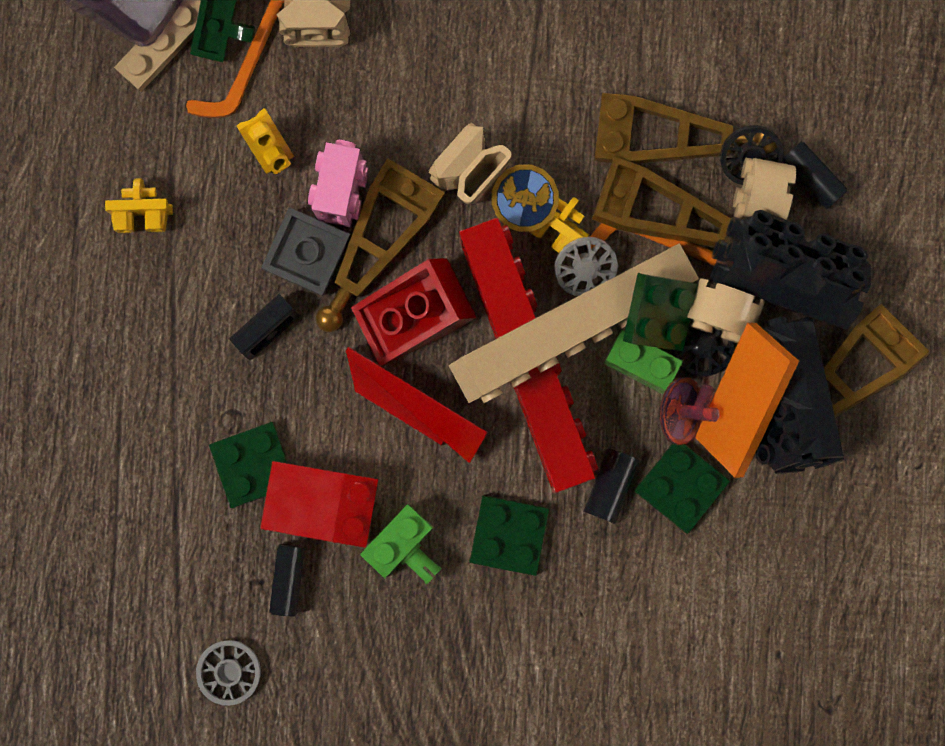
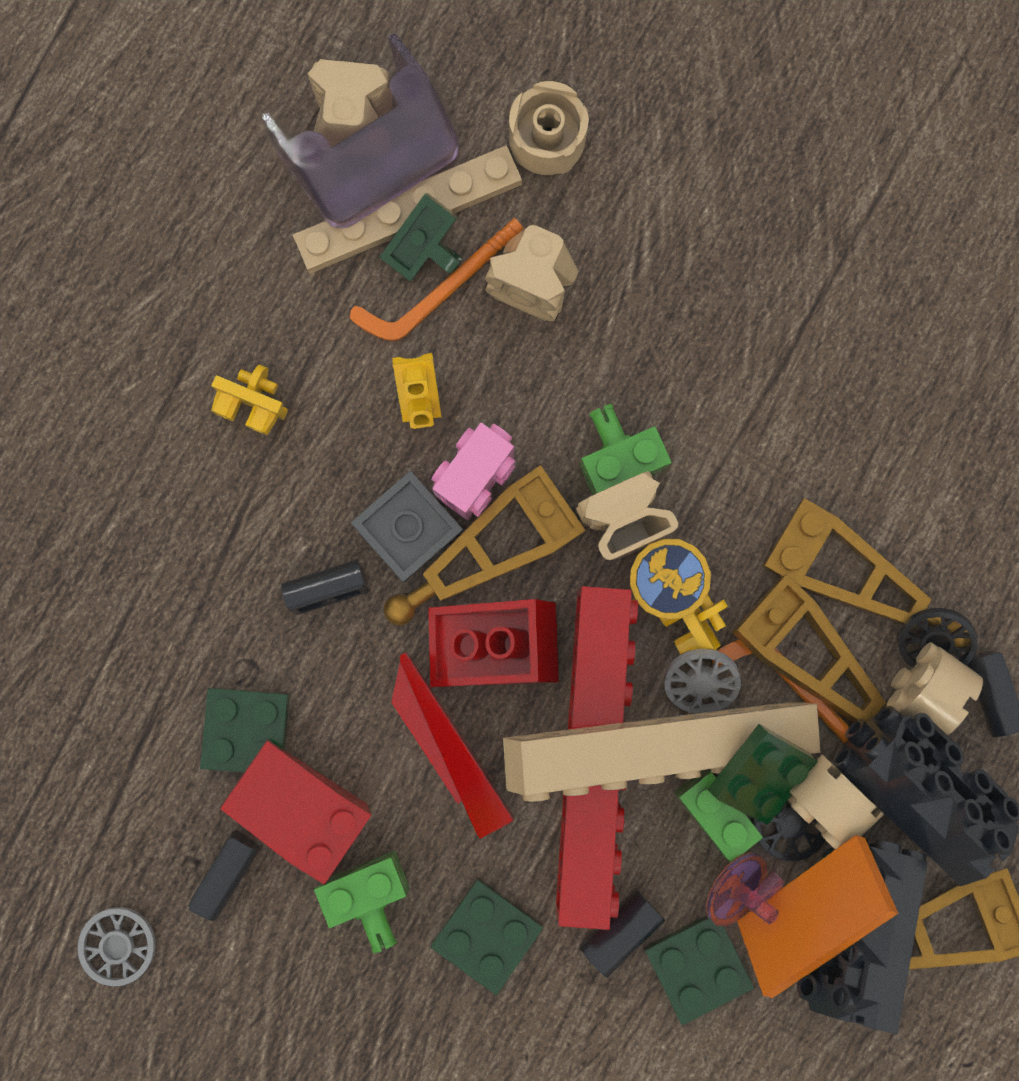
camera: 15 degrees right, 0 degrees up
(445, 120) = (621, 454): none -> bright green brick

